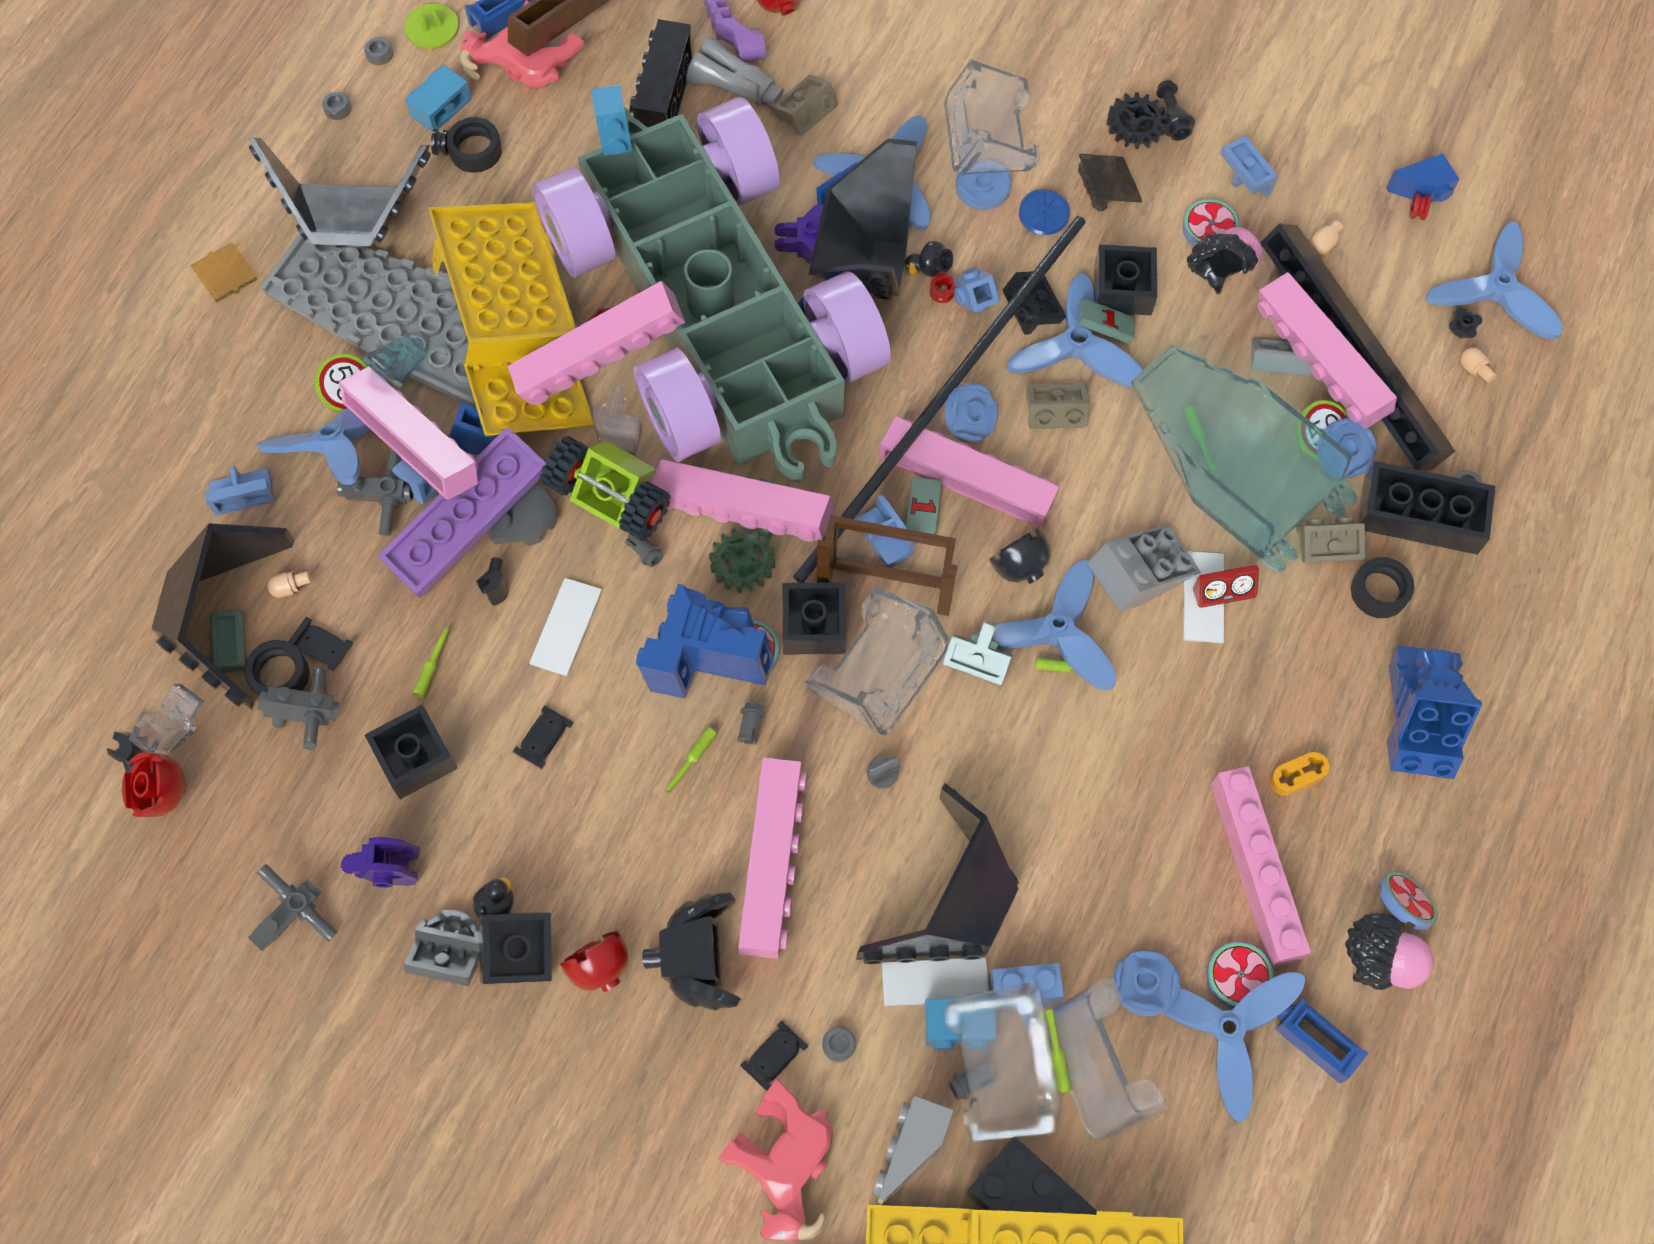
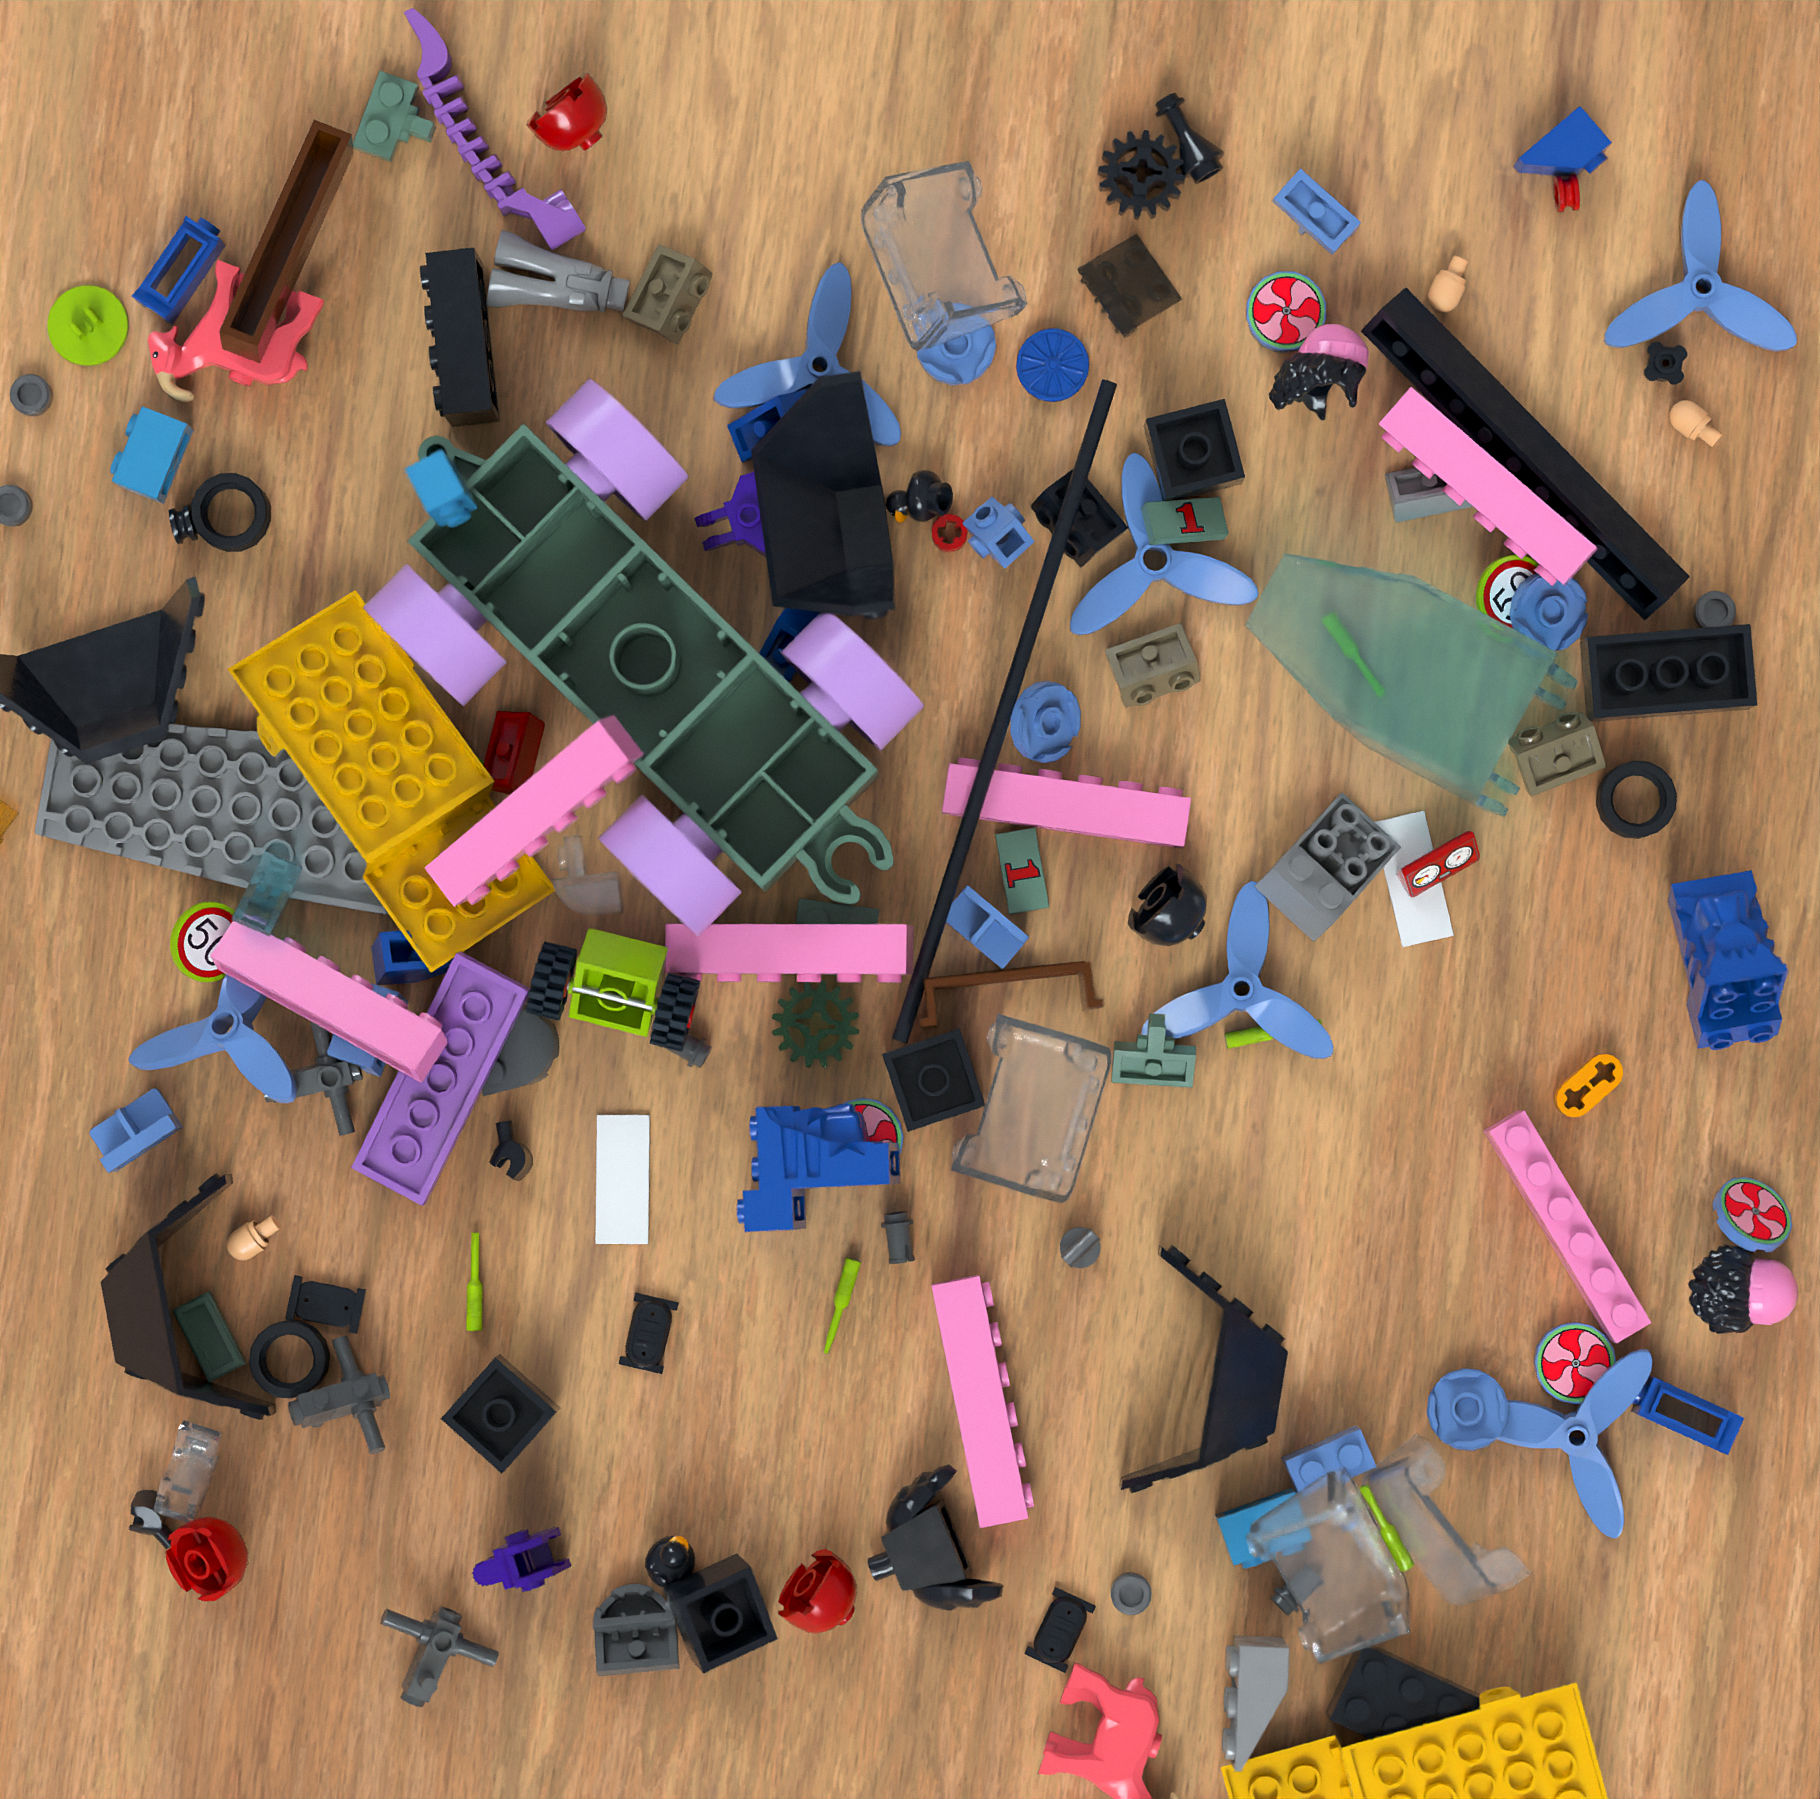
camera: 10 degrees left, 20 degrees up
(929, 979) = (1220, 1485): white piece -> none

